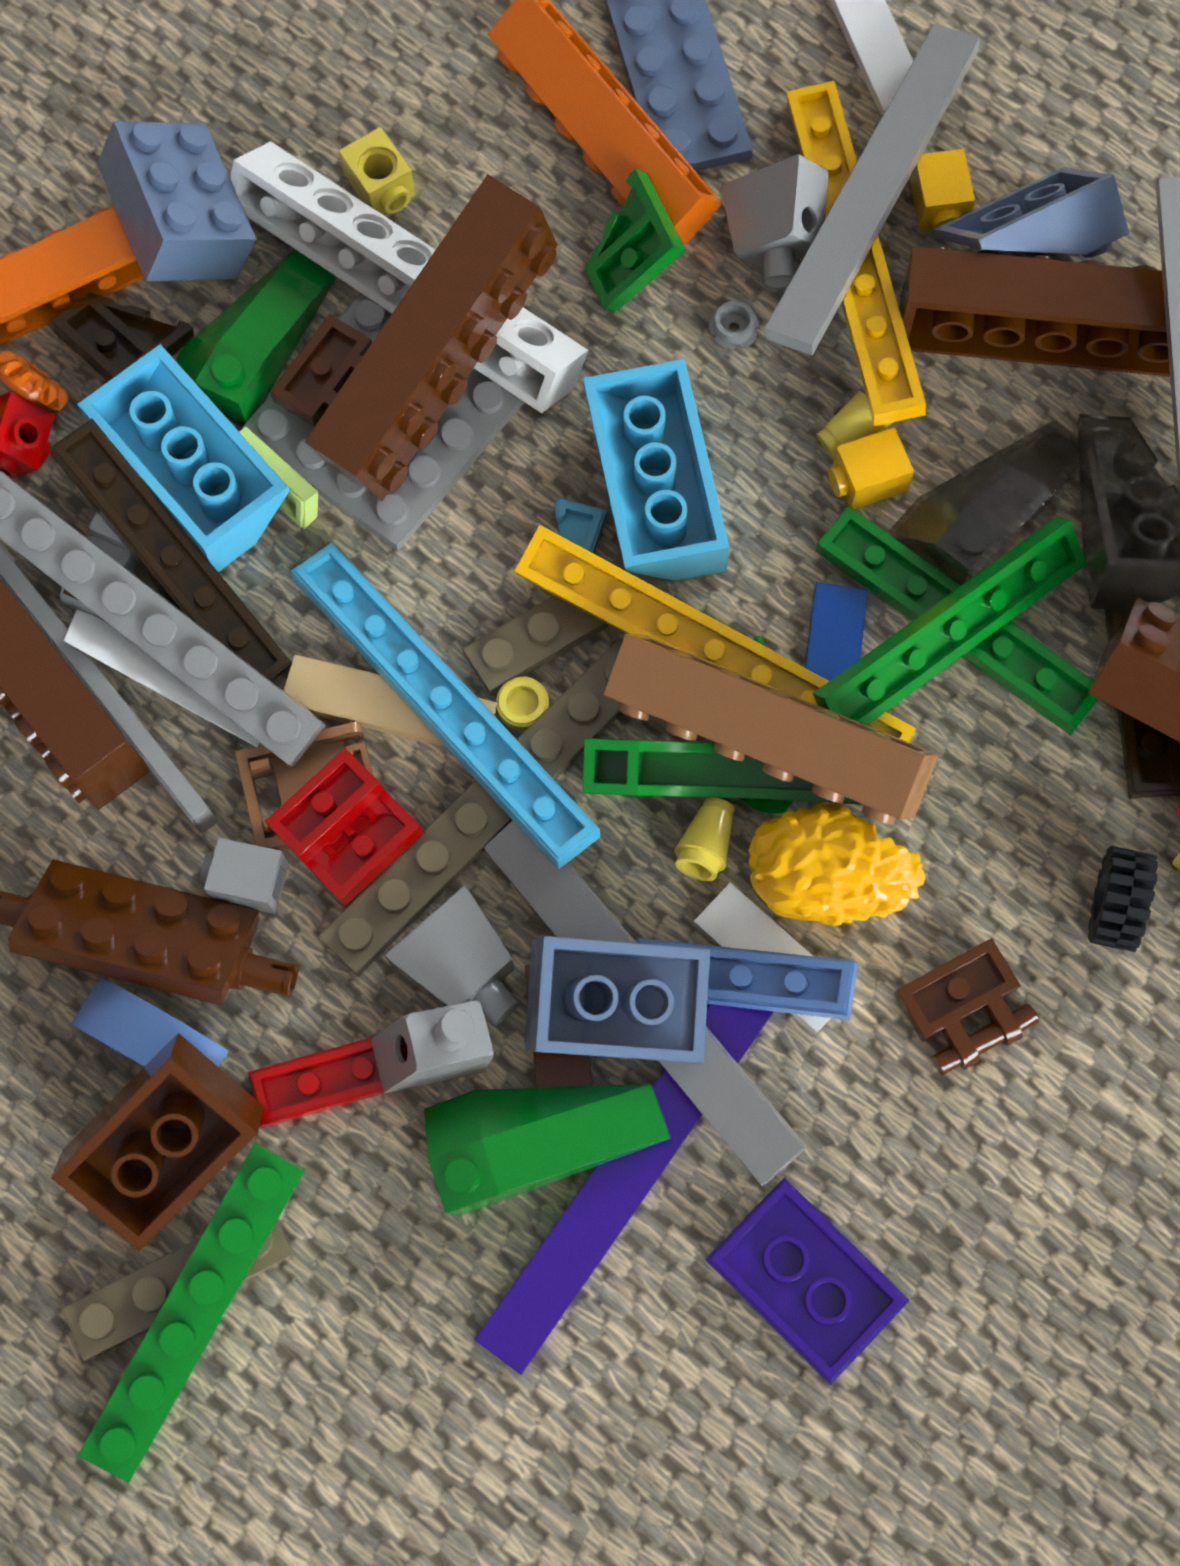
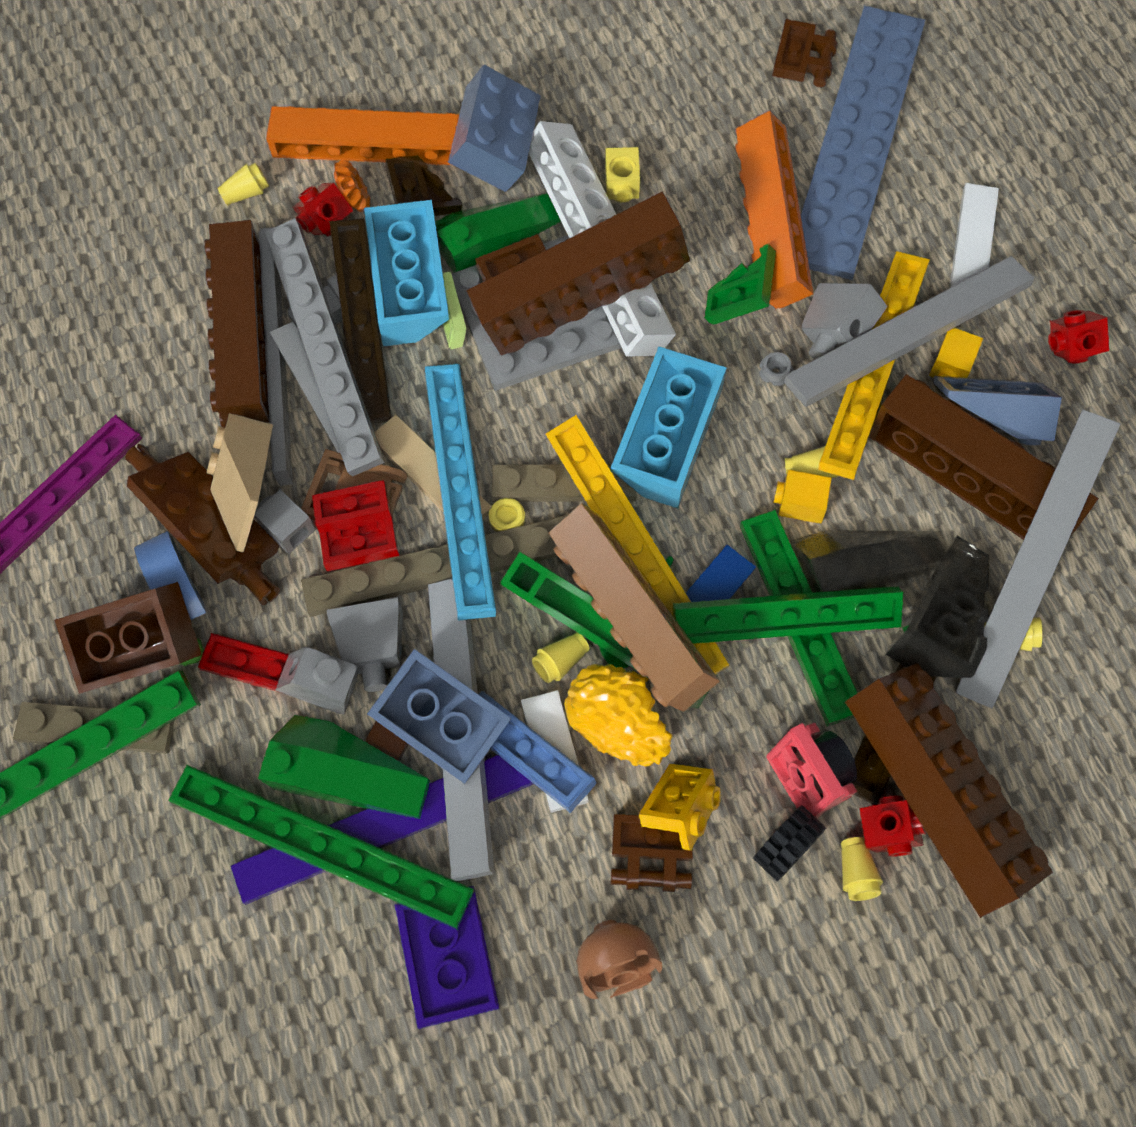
camera: 30 degrees right, 5 degrees down
(161, 850) = (239, 473): none -> tan slope
(569, 1246) = (322, 846): none -> green tile
(579, 523) = (607, 433): medium azure tile -> none
(968, 926) = (682, 802): none -> yellow bracket
(1010, 1155) = (616, 957): none -> nougat cylinder
(1070, 82) = (1079, 335): none -> red brick
(1095, 794) = (814, 768): none -> coral piece

